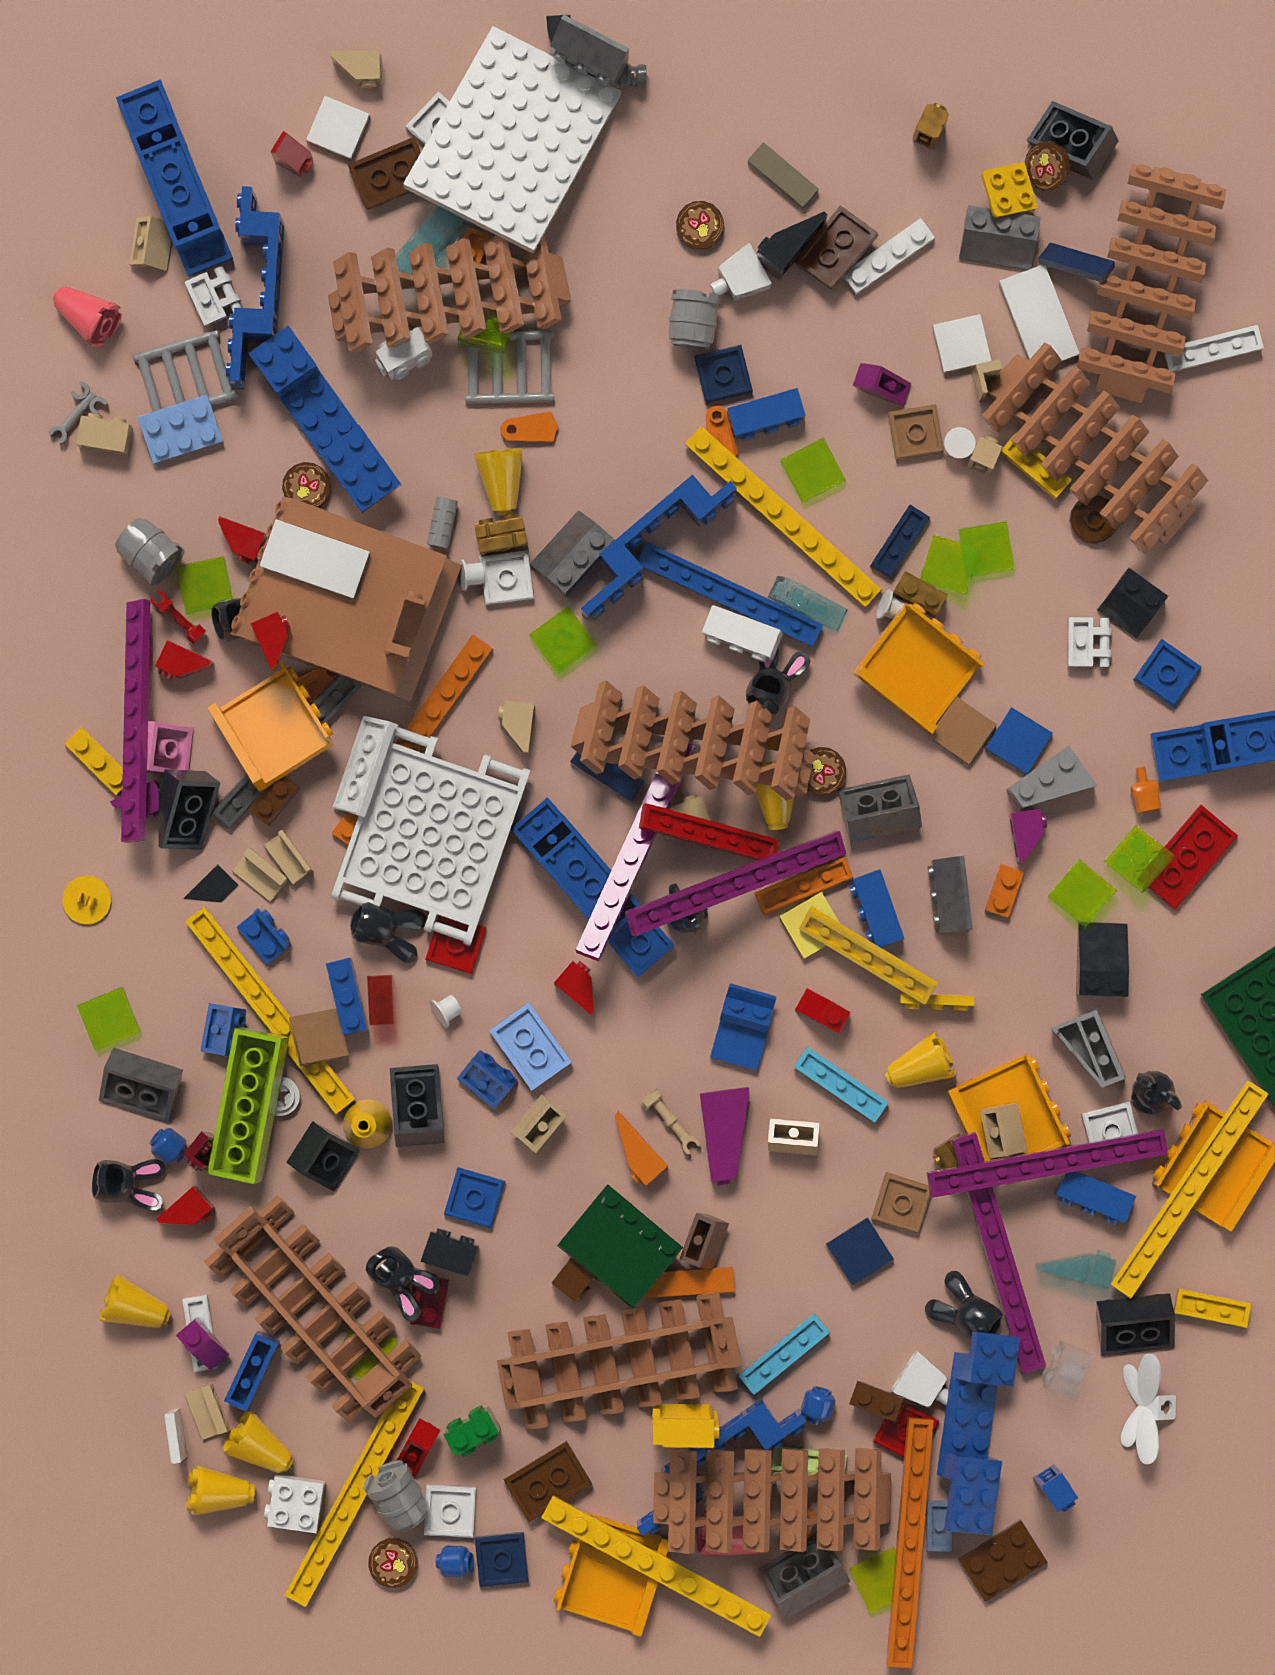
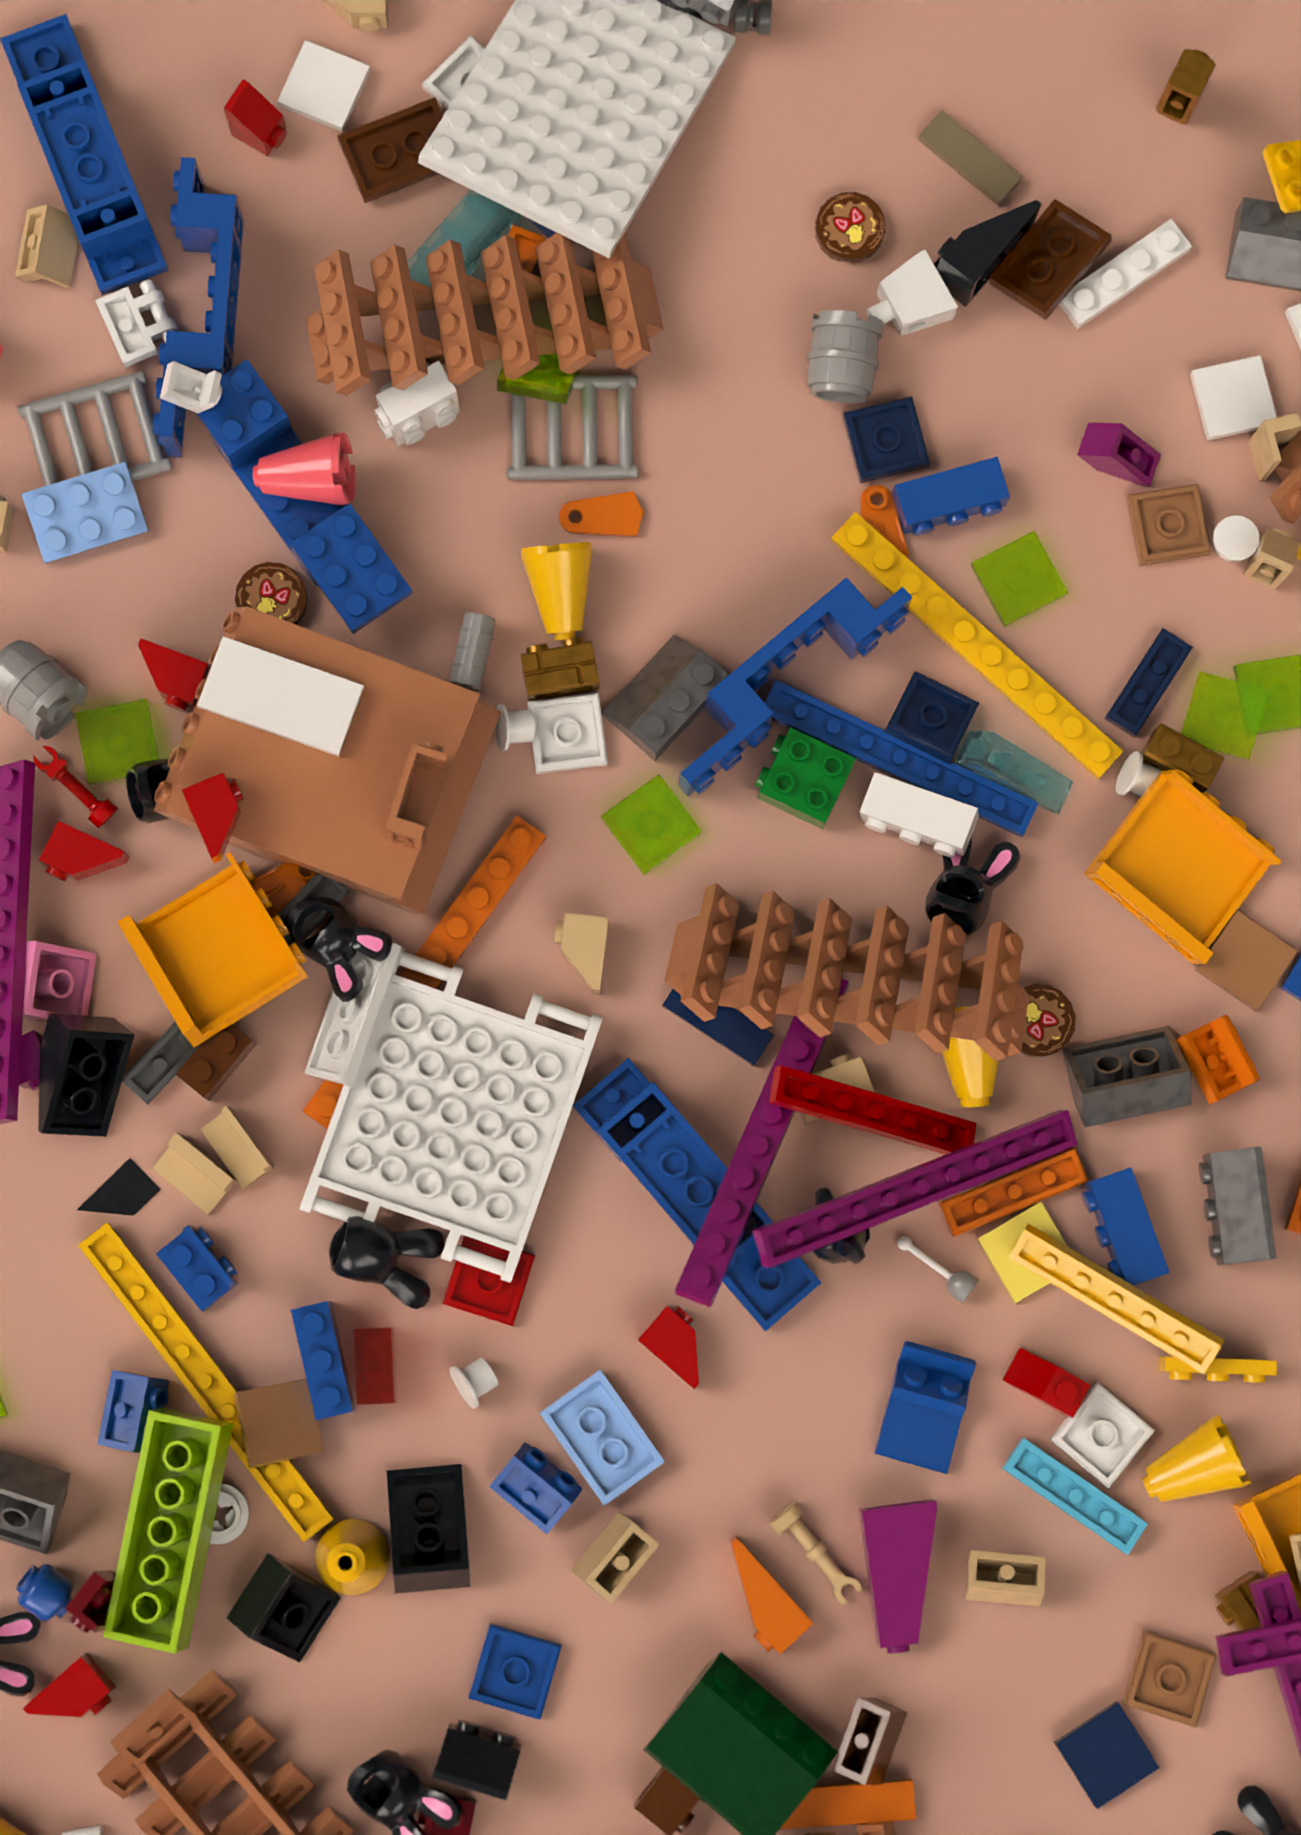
camera: 10 degrees left, 5 degrees down
(251, 347) = (191, 388): none -> white bracket
(332, 402) = (310, 471): none -> coral cone
(354, 721) = (338, 943): none -> black piece
(665, 608) = (804, 777): none -> green brick
(752, 566) = (931, 717): none -> dark blue tile
(766, 946) = (959, 1283): none -> hinge
(860, 1044) = (1102, 1435): none -> white tile
(940, 797) = (1218, 1059): none -> orange bracket

